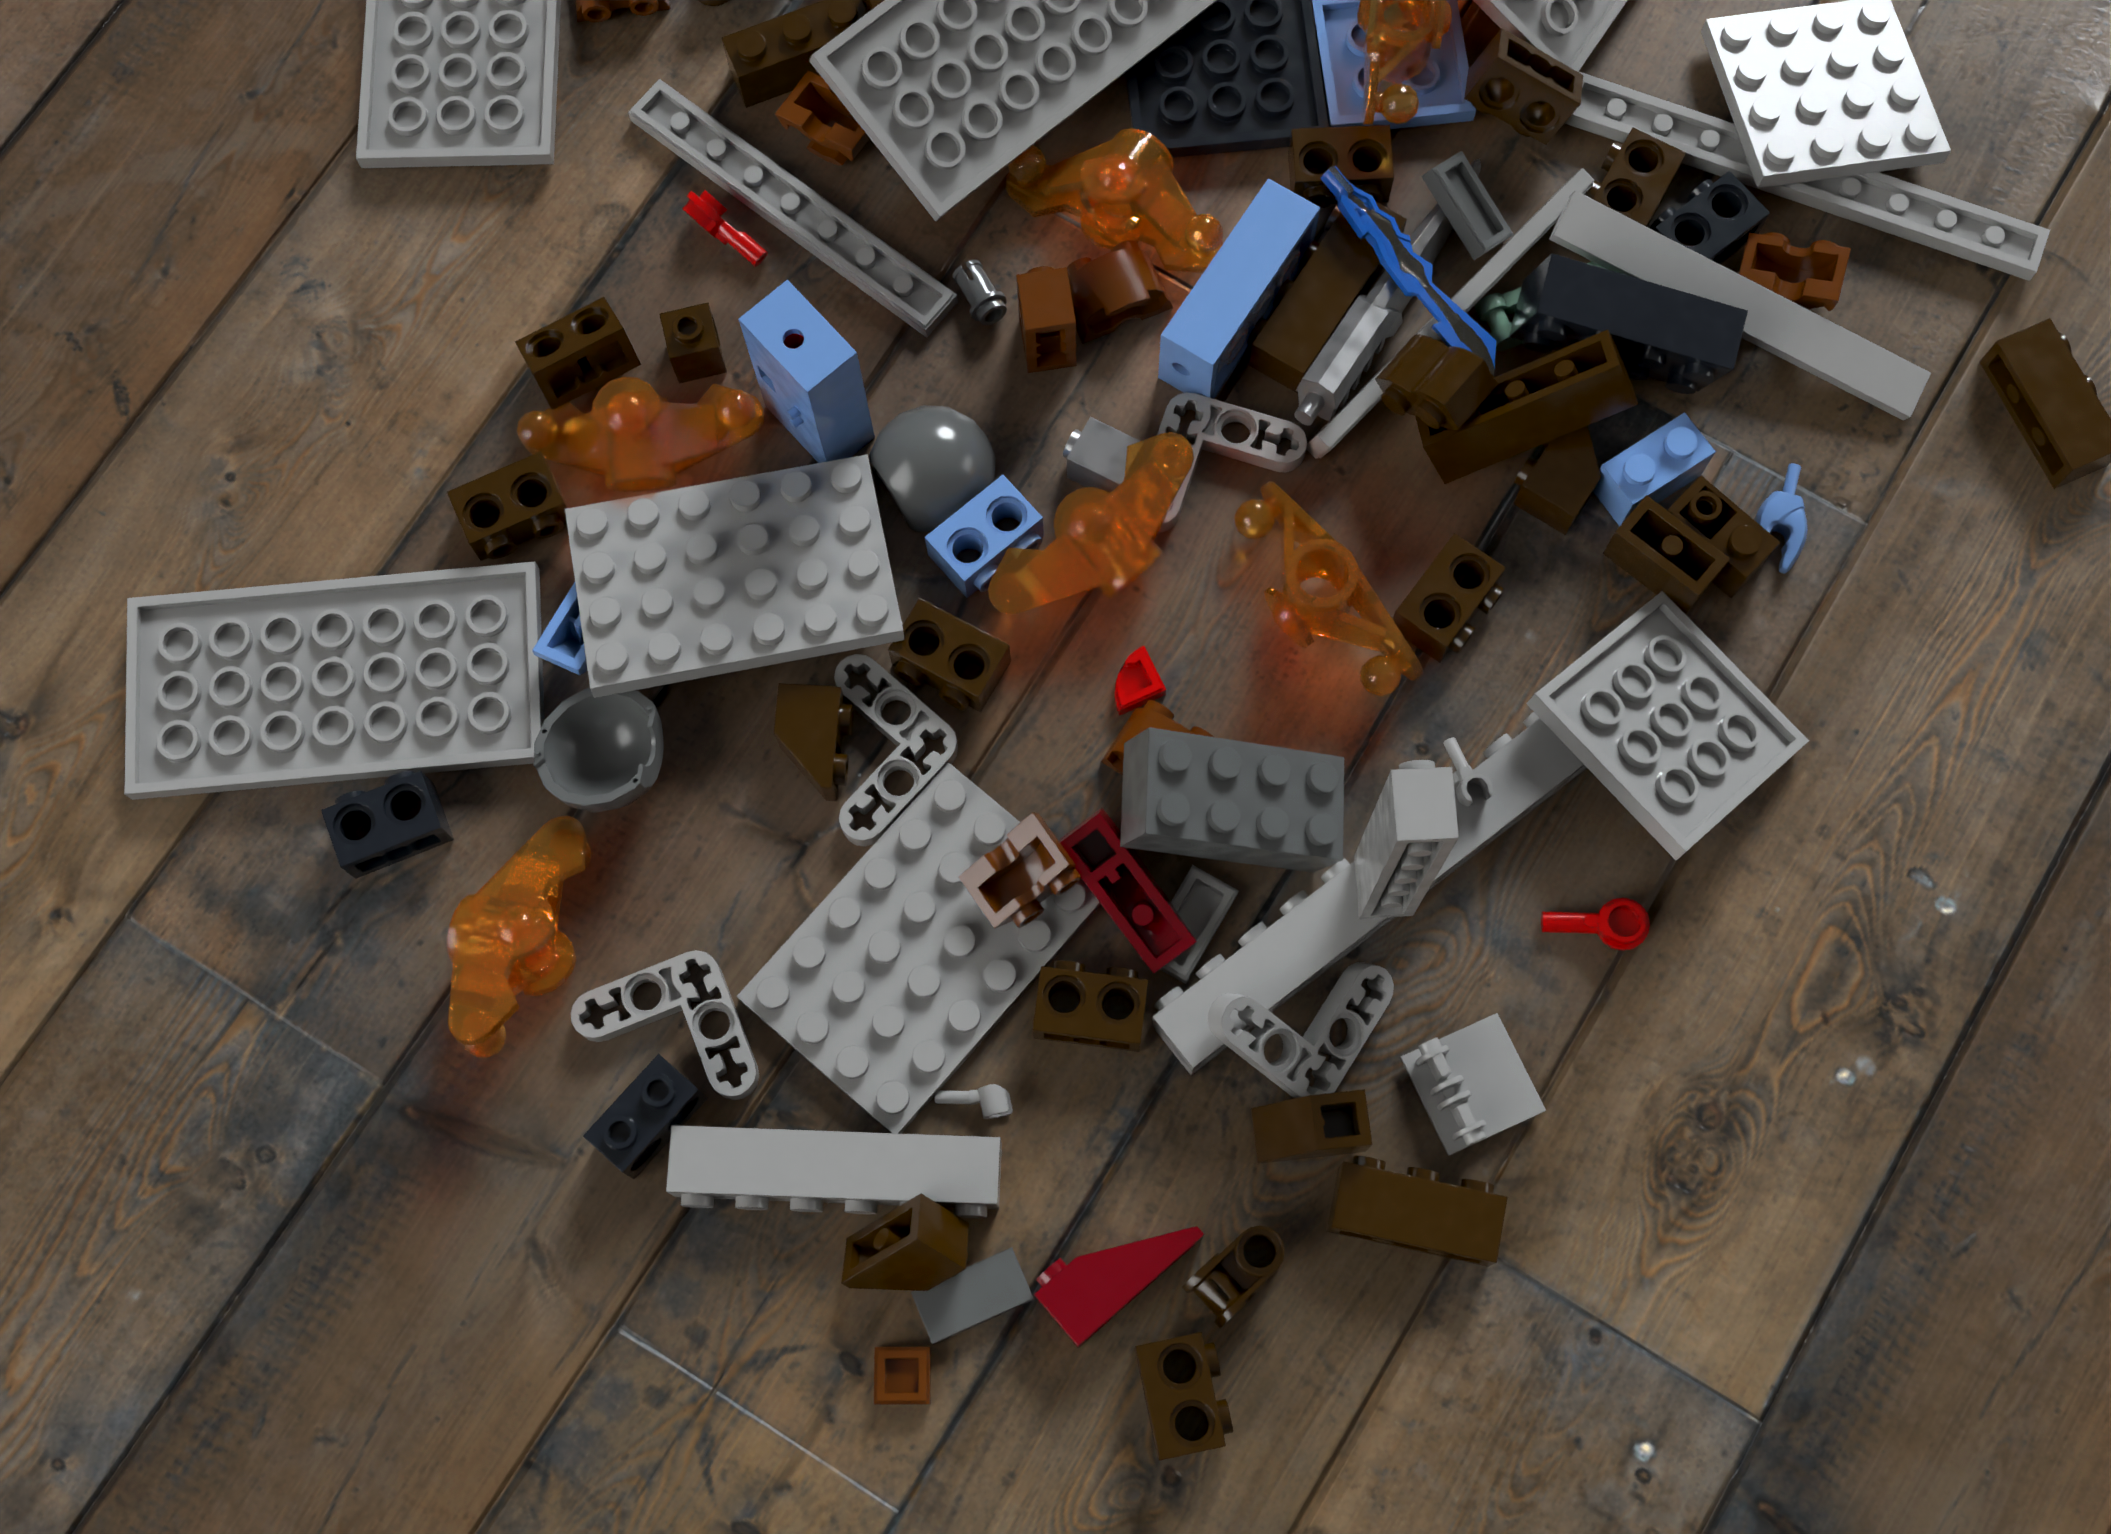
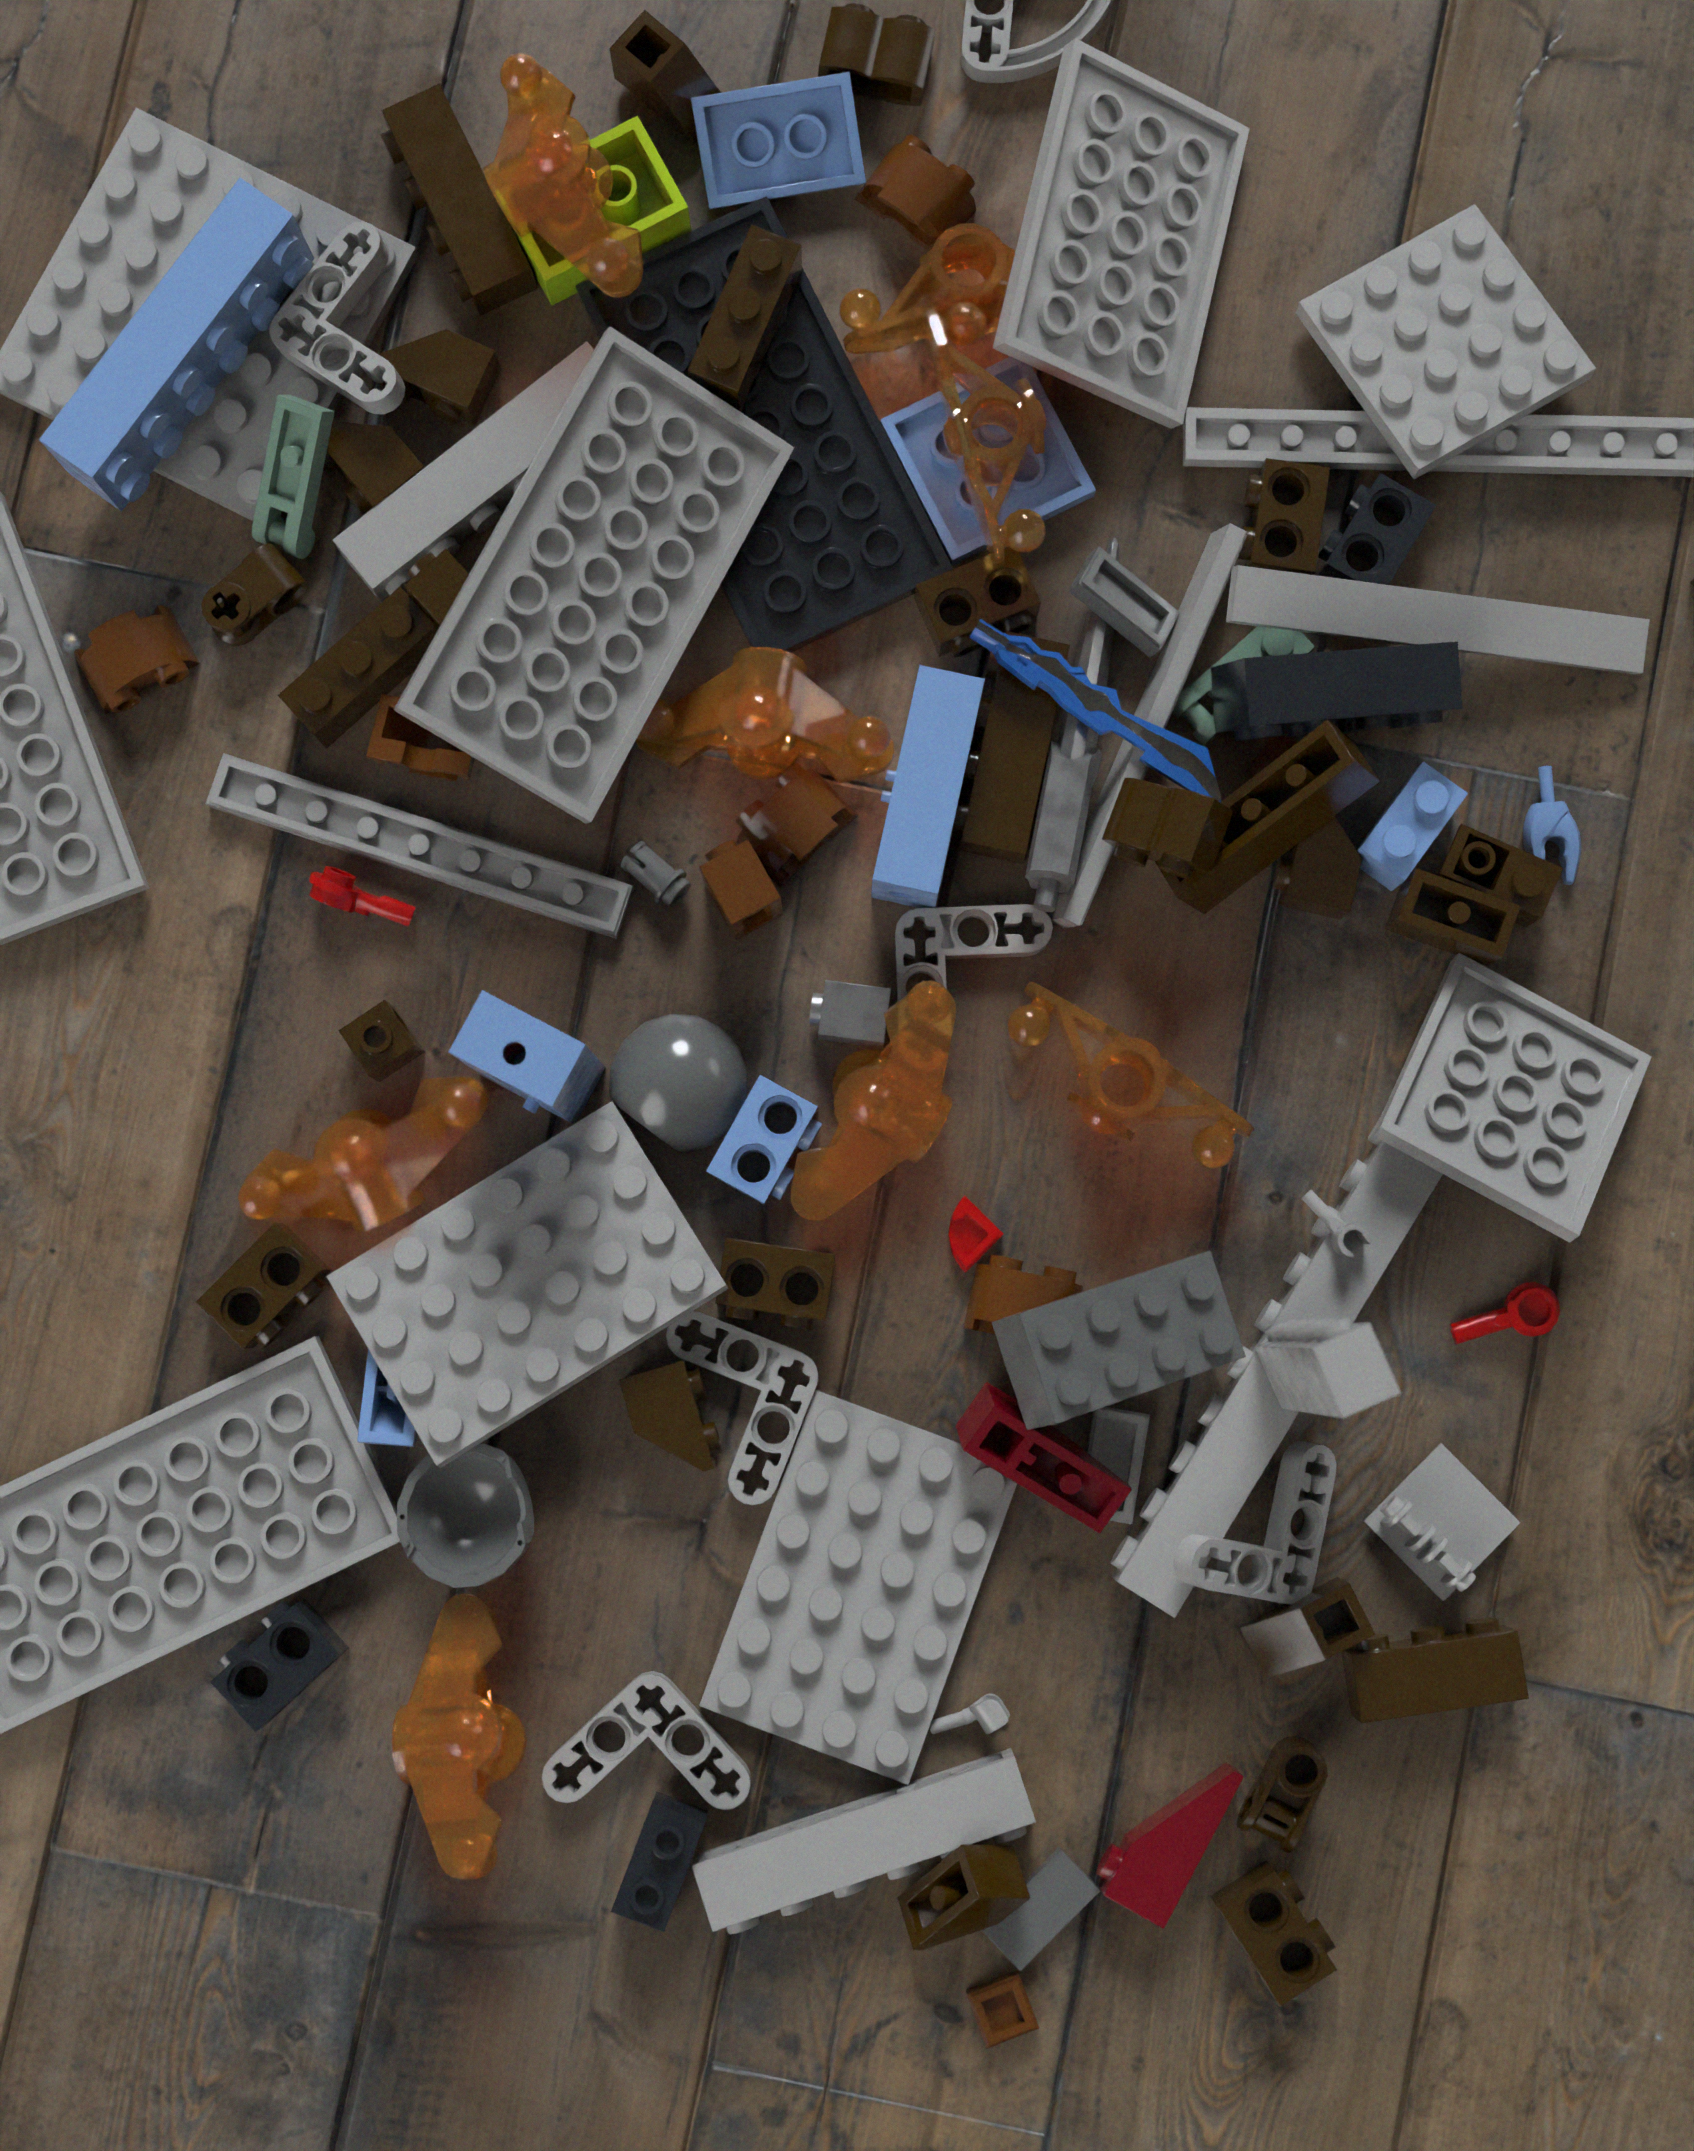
camera: 25 degrees left, 10 degrees up
(578, 353) = (266, 1097): dark brown brick -> none
(1020, 874) = (935, 1490): reddish brown cylinder -> none
(1088, 1022) = (1052, 1603): dark brown brick -> none
(1442, 595) = (1238, 1032): dark brown brick -> none
(1528, 78) = (1139, 452): dark brown brick -> none
(1802, 275) = (1482, 559): reddish brown cylinder -> none

